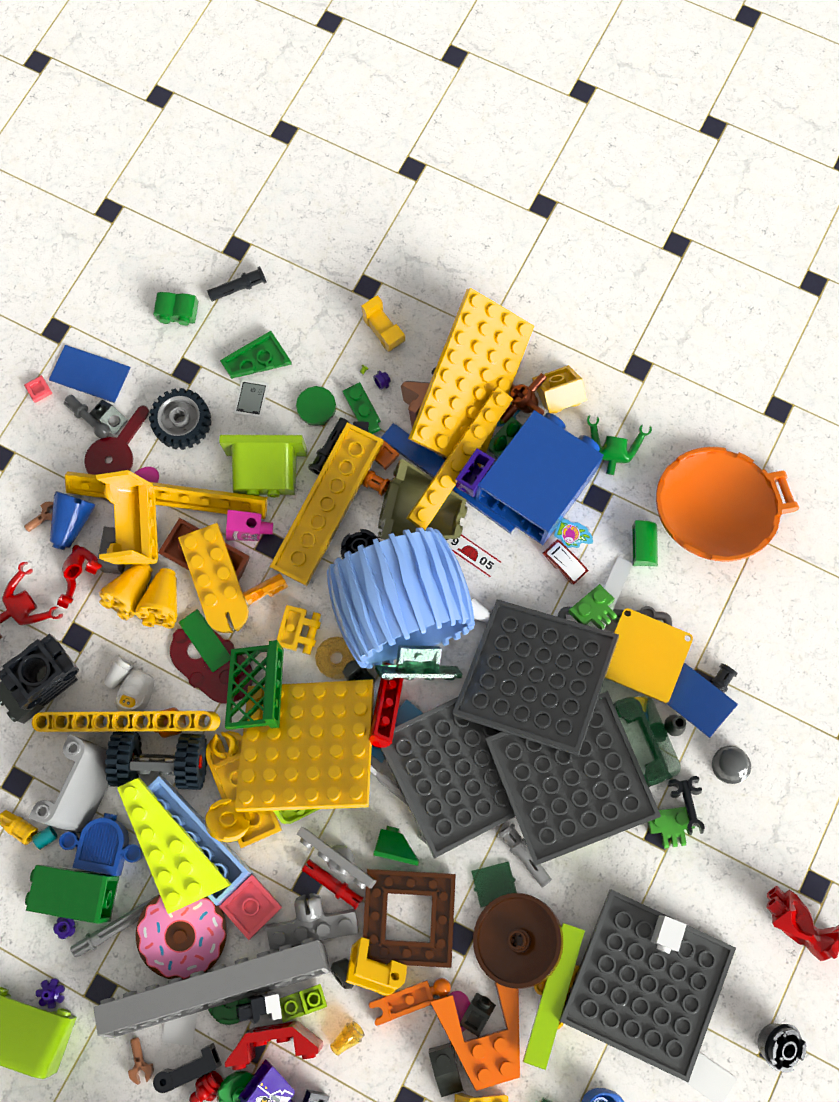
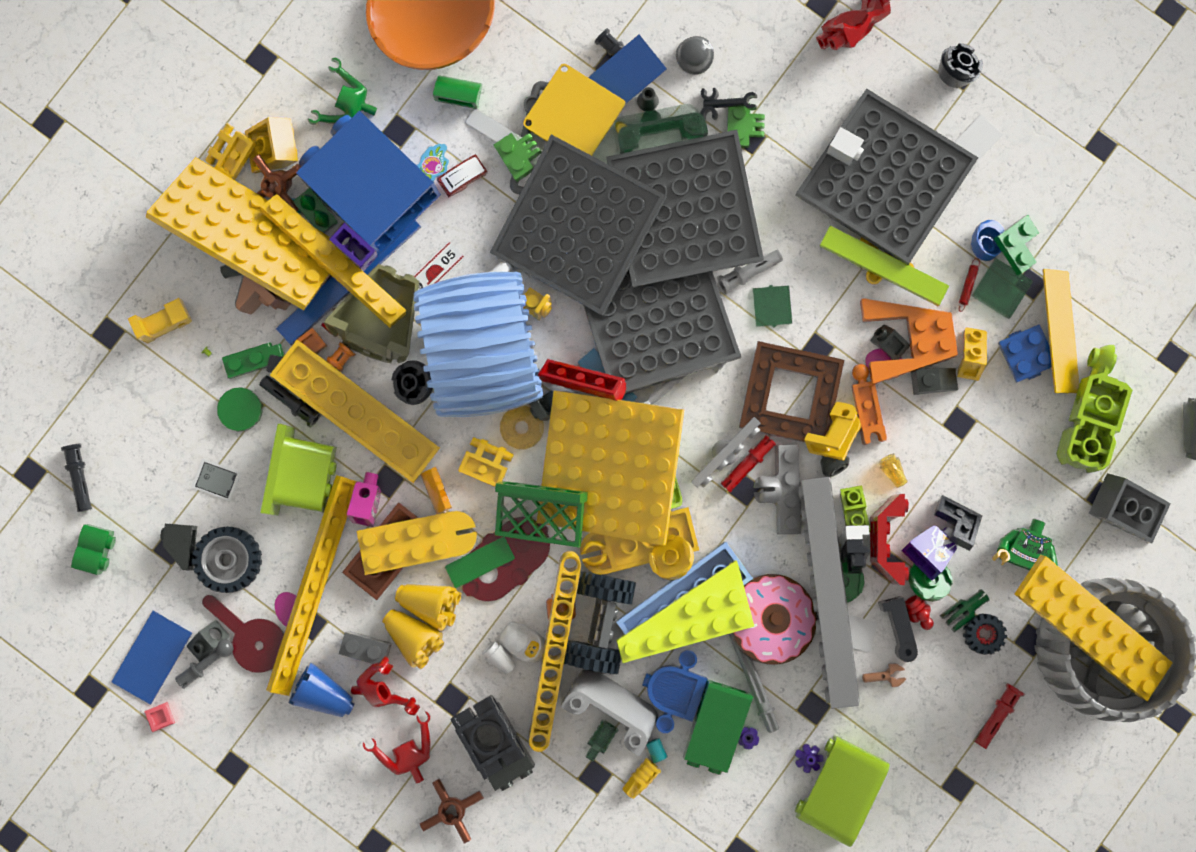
camera: 85 degrees left, 10 degrees up
(45, 515) = (318, 736): nougat bar -> none
(48, 780) = (601, 739): none -> clear green hinge
(134, 519) = (338, 620): yellow windscreen -> none
(190, 375) = (180, 543): none -> pearl dark grey slope
(250, 907) = (757, 547): coral plate -> none
(257, 356) = (170, 466): green wing -> none
(382, 380) = (224, 333): dark purple plate -> none
(394, 846) = (723, 395): green slope -> none
(418, 663) = (546, 341): clear green bracket -> none
(455, 651) = (537, 304): none -> yellow bracket
(518, 940) = (829, 291): reddish brown dish -> none
(543, 359) = (235, 154): none -> yellow plate
(547, 1091) = (968, 285): none -> red piece

